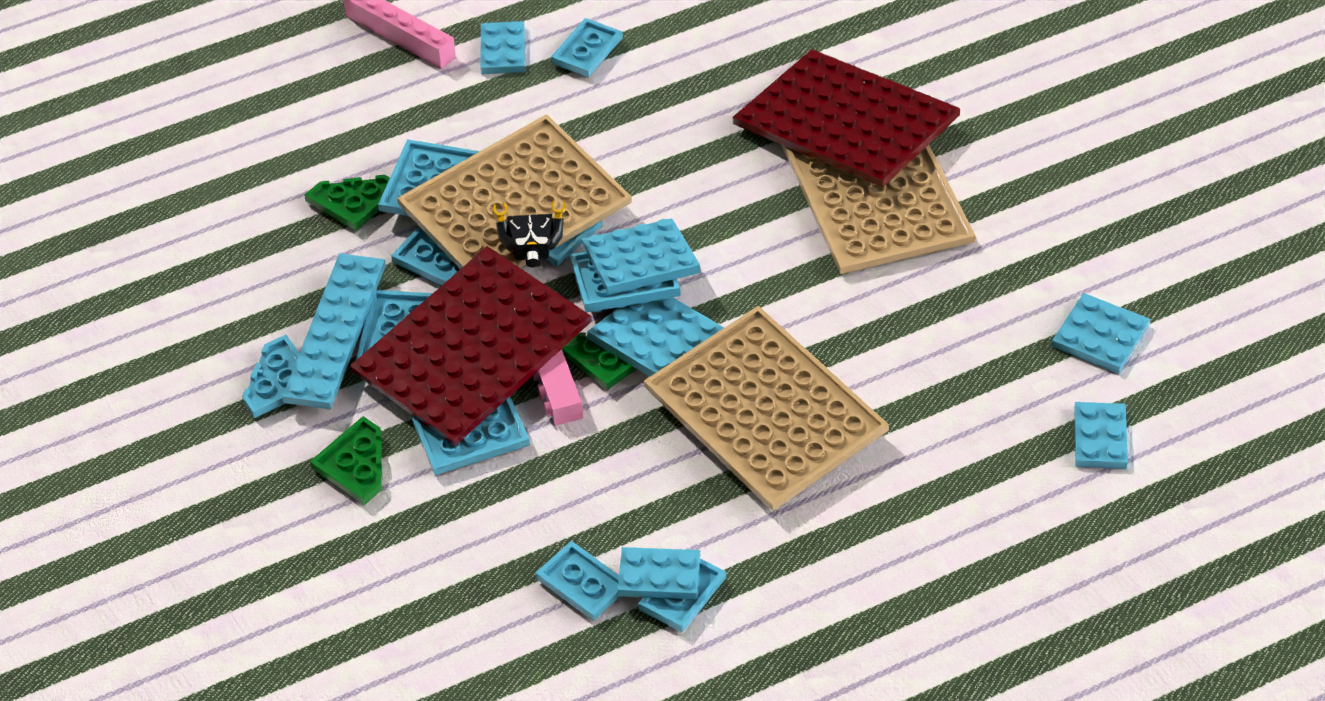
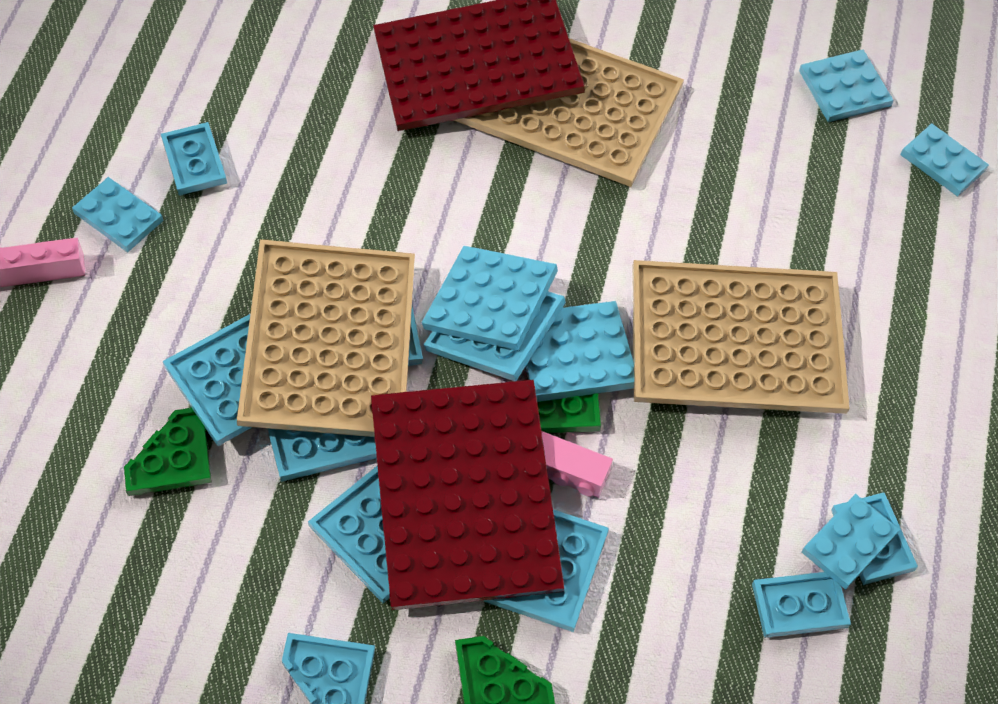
camera: 55 degrees left, 10 degrees up
(334, 331) = (331, 590): medium azure plate -> none
(530, 235) = (395, 353): black torso -> none

